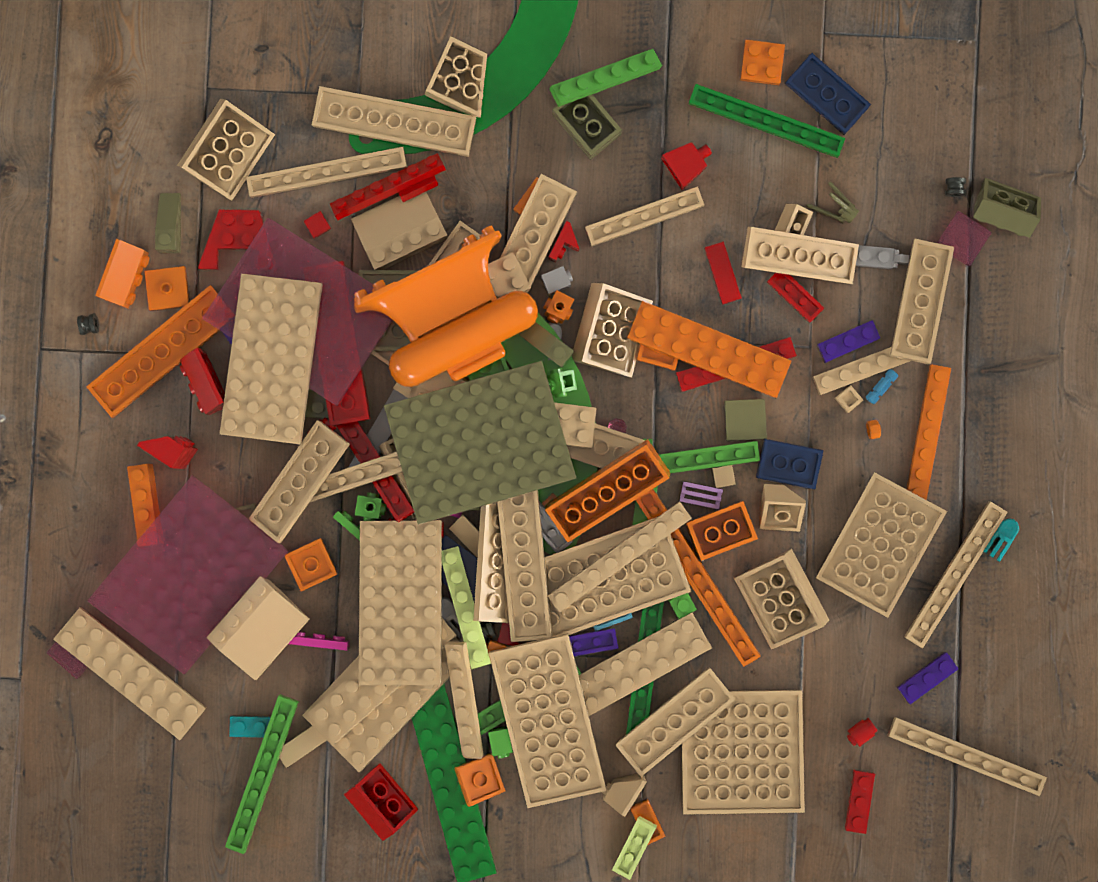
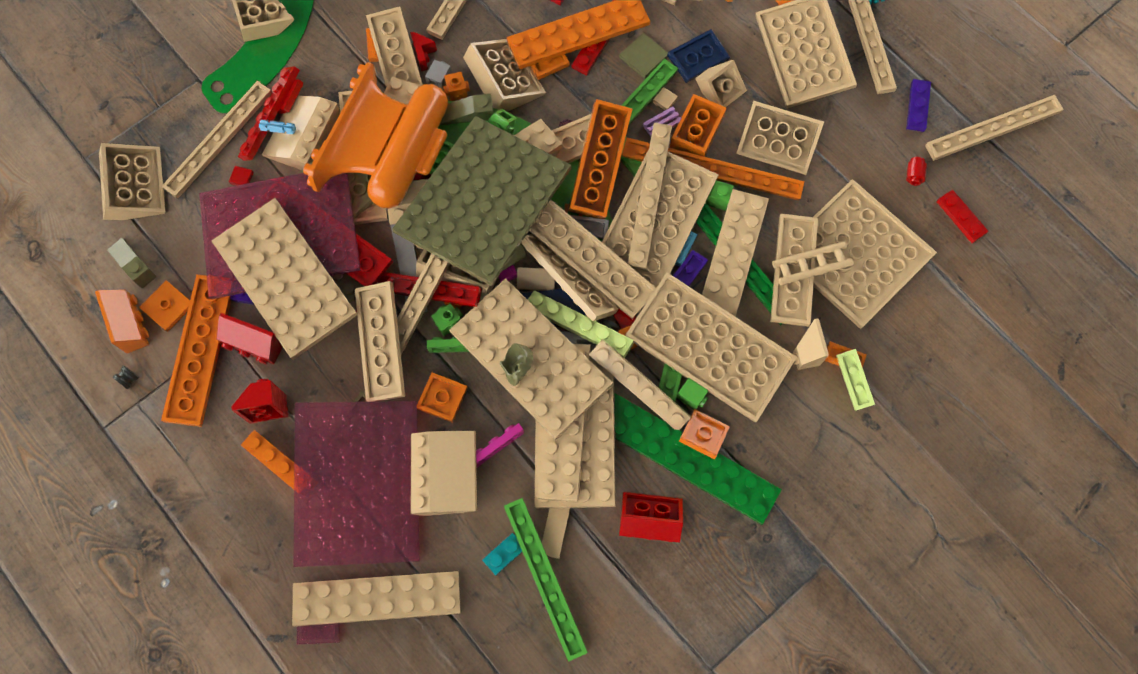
camera: 40 degrees left, 15 degrees down
(230, 231) = (181, 231): red wing -> none
(379, 213) = (279, 127): none -> dark azure axle
(381, 604) = (517, 363): none -> olive hair
(394, 121) = (236, 72): tan plate -> none
(704, 728) = (819, 254): none -> tan bar

